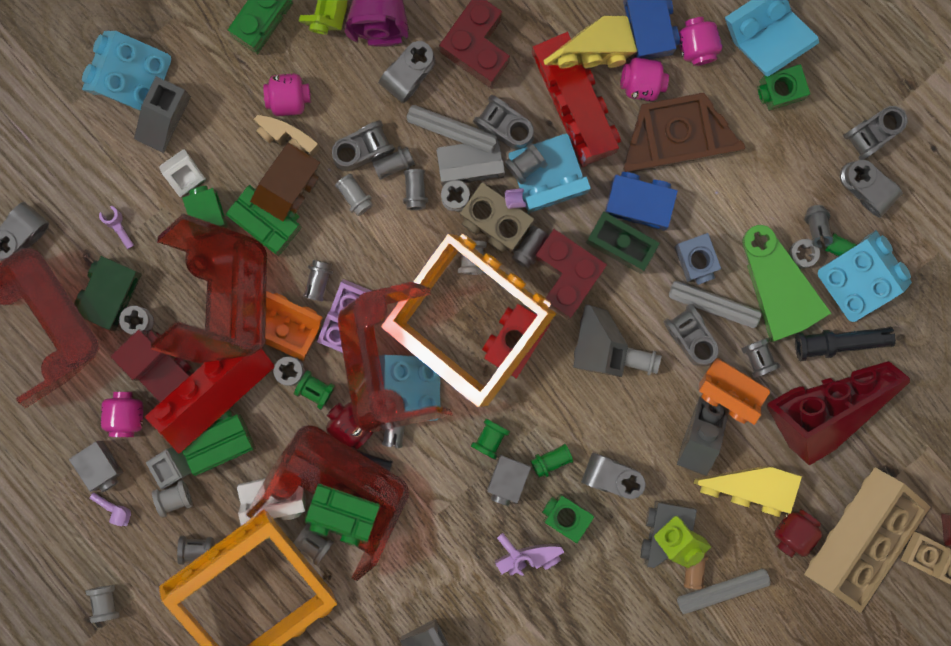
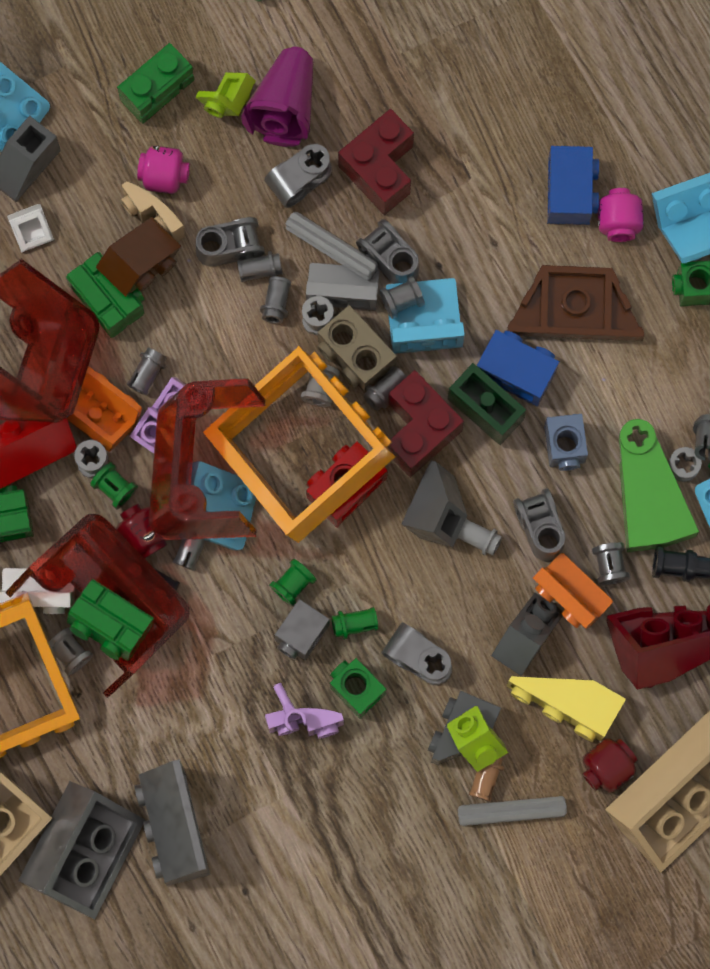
camera: 15 degrees right, 10 degrees down
(205, 205) = (47, 260): green brick -> none
(354, 195) = (209, 291): light grey pin -> none
(514, 198) = (380, 328): lavender hand -> none
(577, 104) = (471, 244): red wedge -> none
(602, 42) = (511, 189): light yellow slope -> none
(644, 79) = (550, 239): dark pink head -> none
(715, 304) = (574, 496): light grey axle -> none

